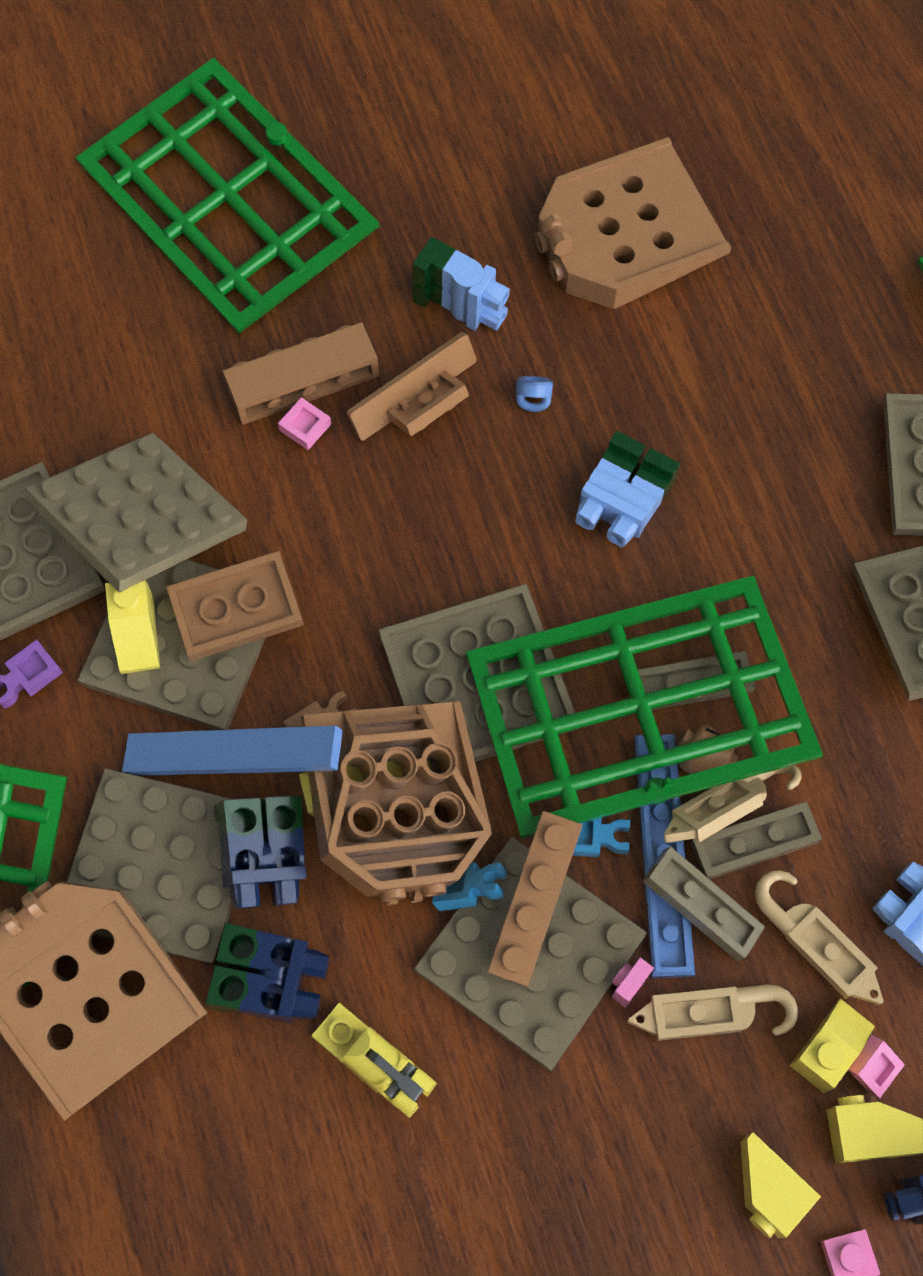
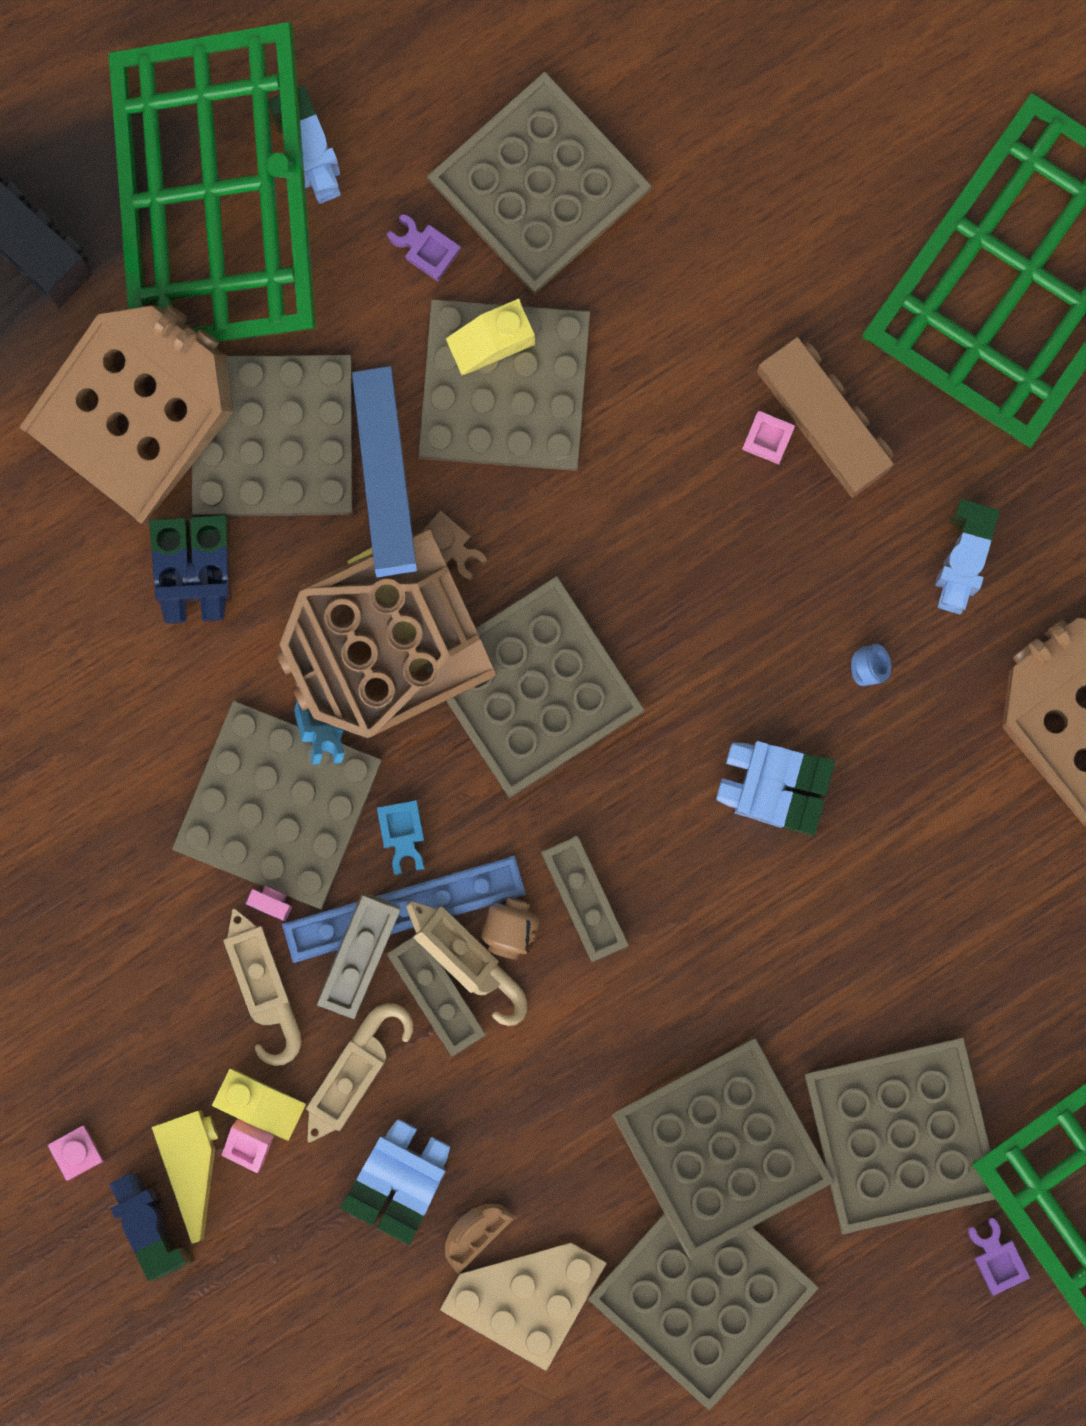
camera: 80 degrees right, 15 degrees up
(135, 511) = (613, 300): dark tan plate -> none
(234, 606) = (539, 429): medium nougat plate -> none
(261, 846) = (305, 527): dark blue hips -> none
(373, 1060) = (140, 685): light yellow plate -> none
(417, 393) = (832, 547): medium nougat bracket -> none
(534, 898) = (318, 794): medium nougat plate -> none
(656, 789) = (457, 886): green door -> none
(773, 1189) = (114, 1071): light yellow slope -> none

